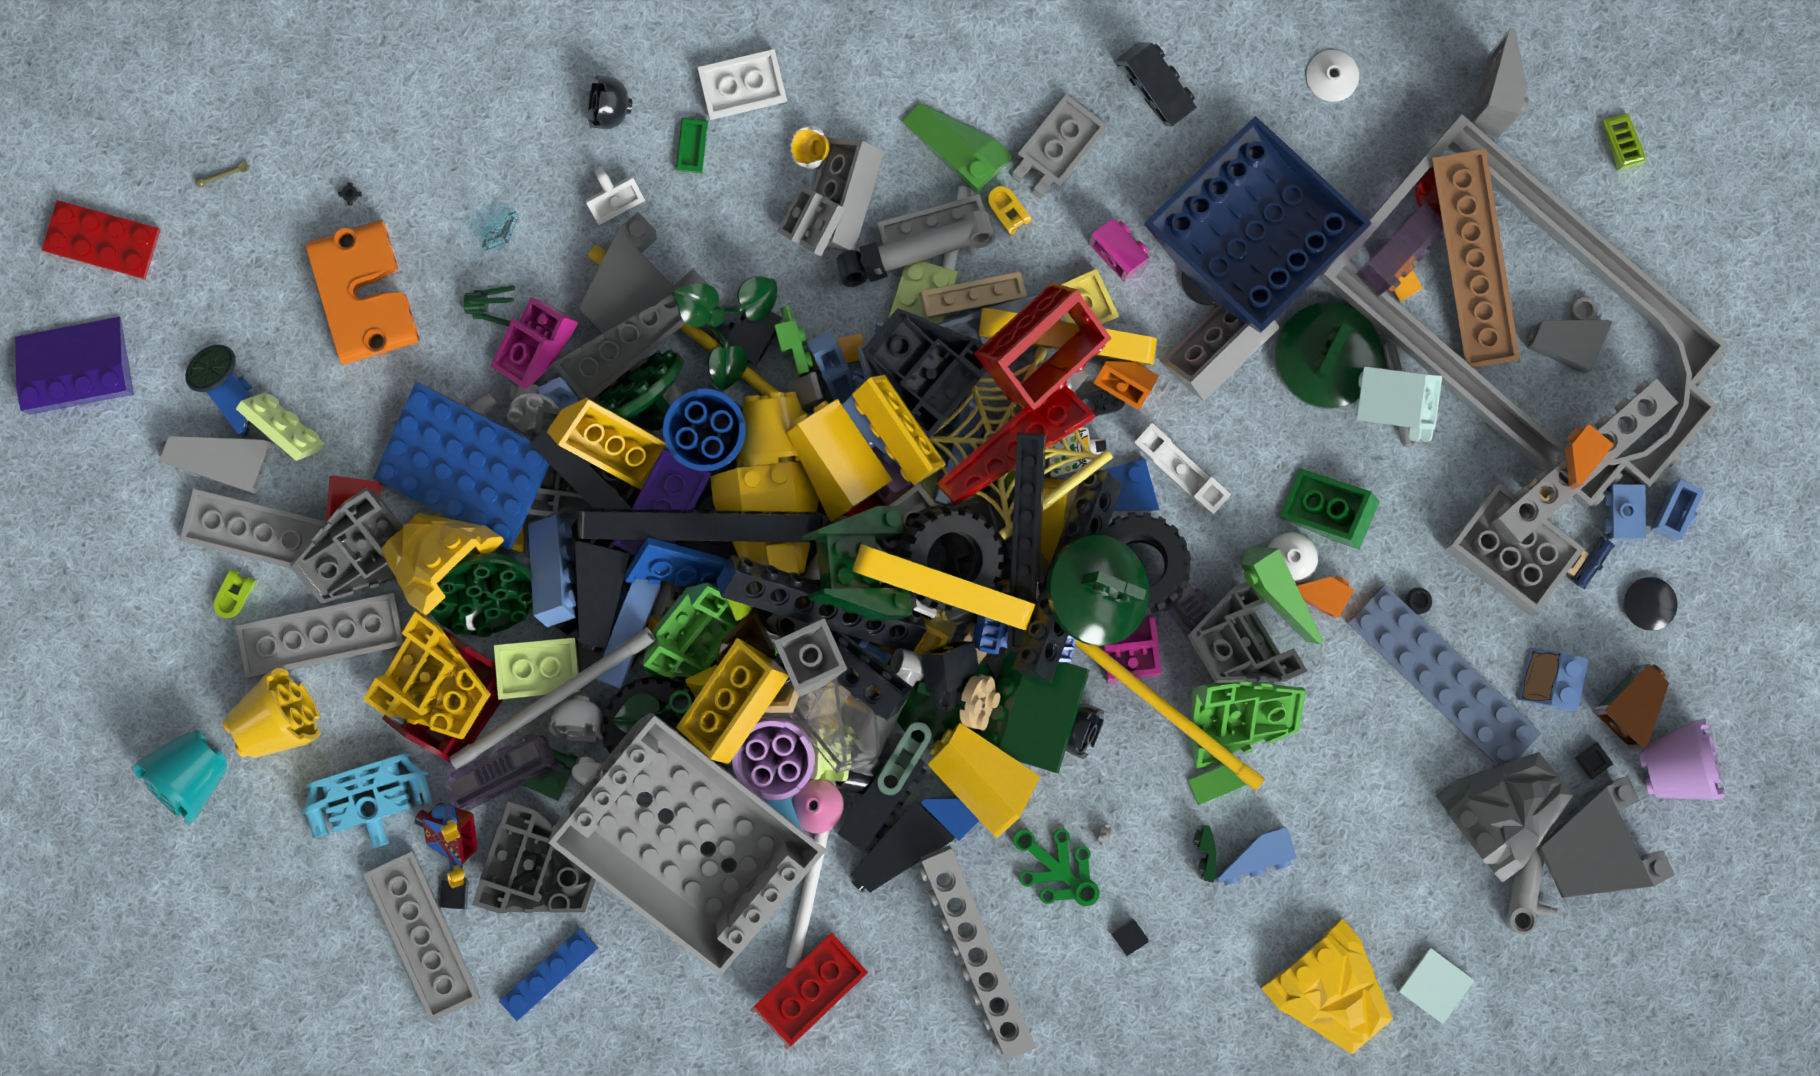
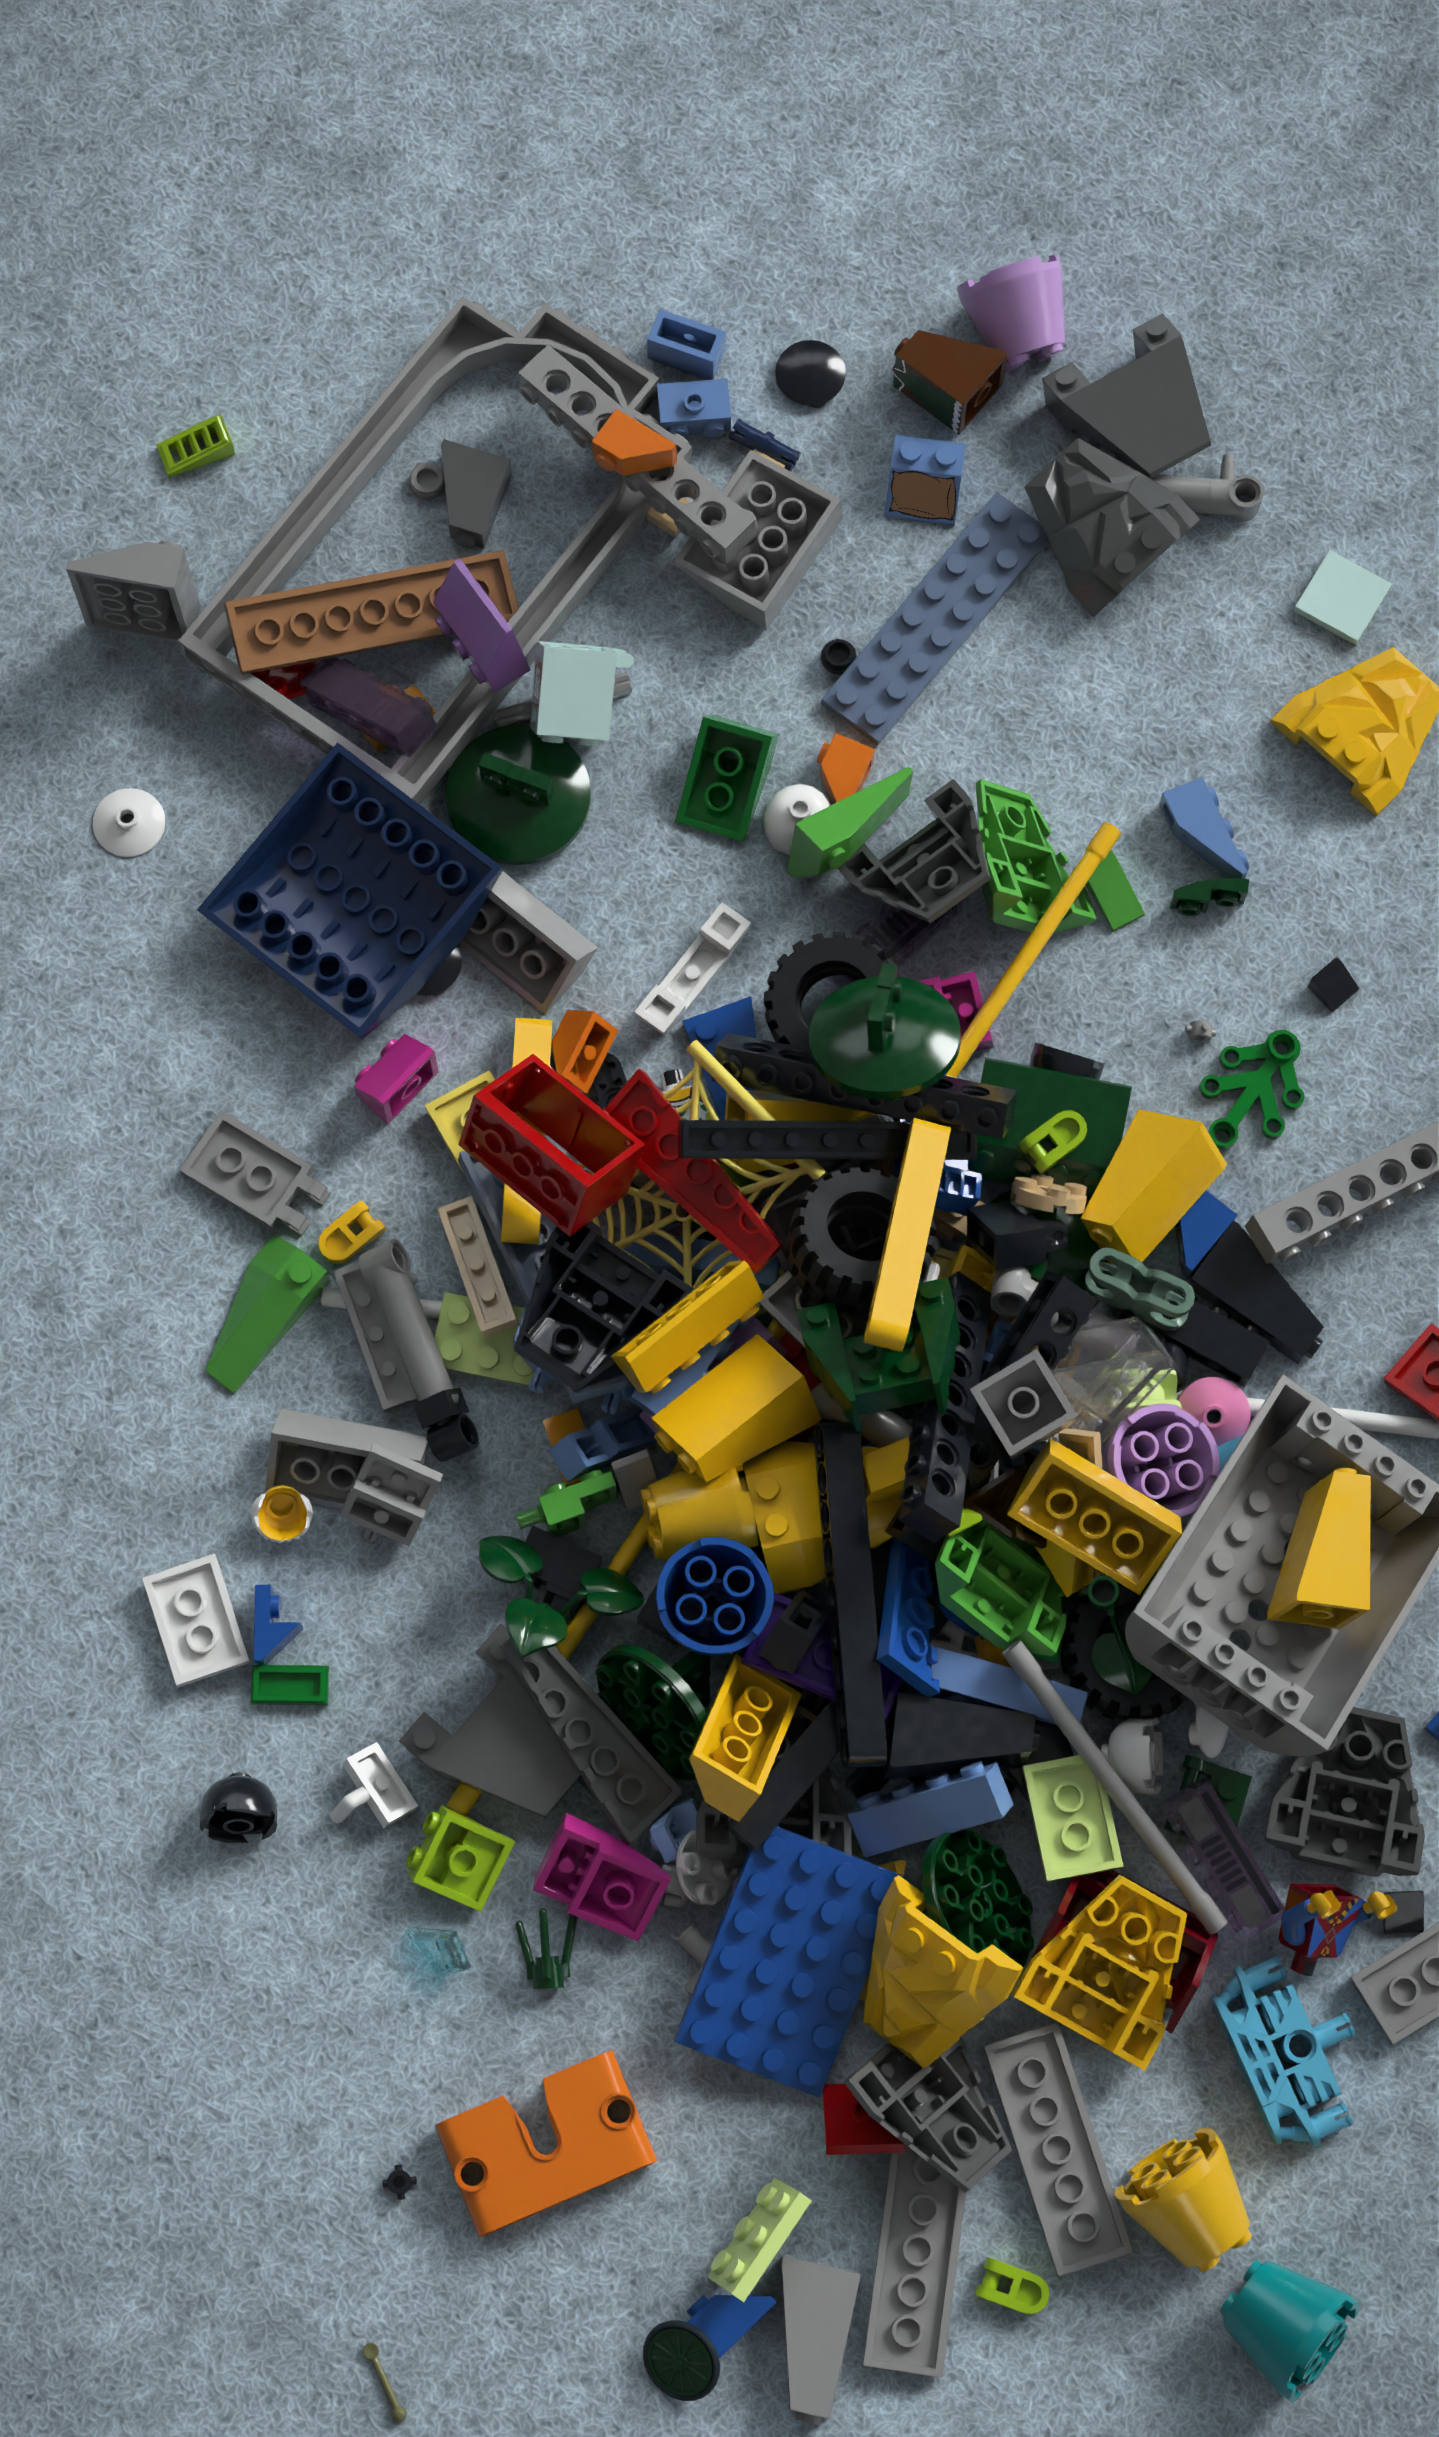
camera: 95 degrees left, 10 degrees down
(558, 248) = (458, 1857): none -> lime plate
(677, 485) = (795, 1632): none -> black slope
(696, 867) = (1328, 1555): none -> yellow slope
(726, 131) = (268, 1635): none -> blue slope
(1025, 720) = (1066, 1132): none -> lime plate
(1157, 82) = (155, 1046): black wedge -> none
(1449, 331) = (478, 630): none -> medium lavender slope
(1593, 760) = (1023, 427): black tile -> none

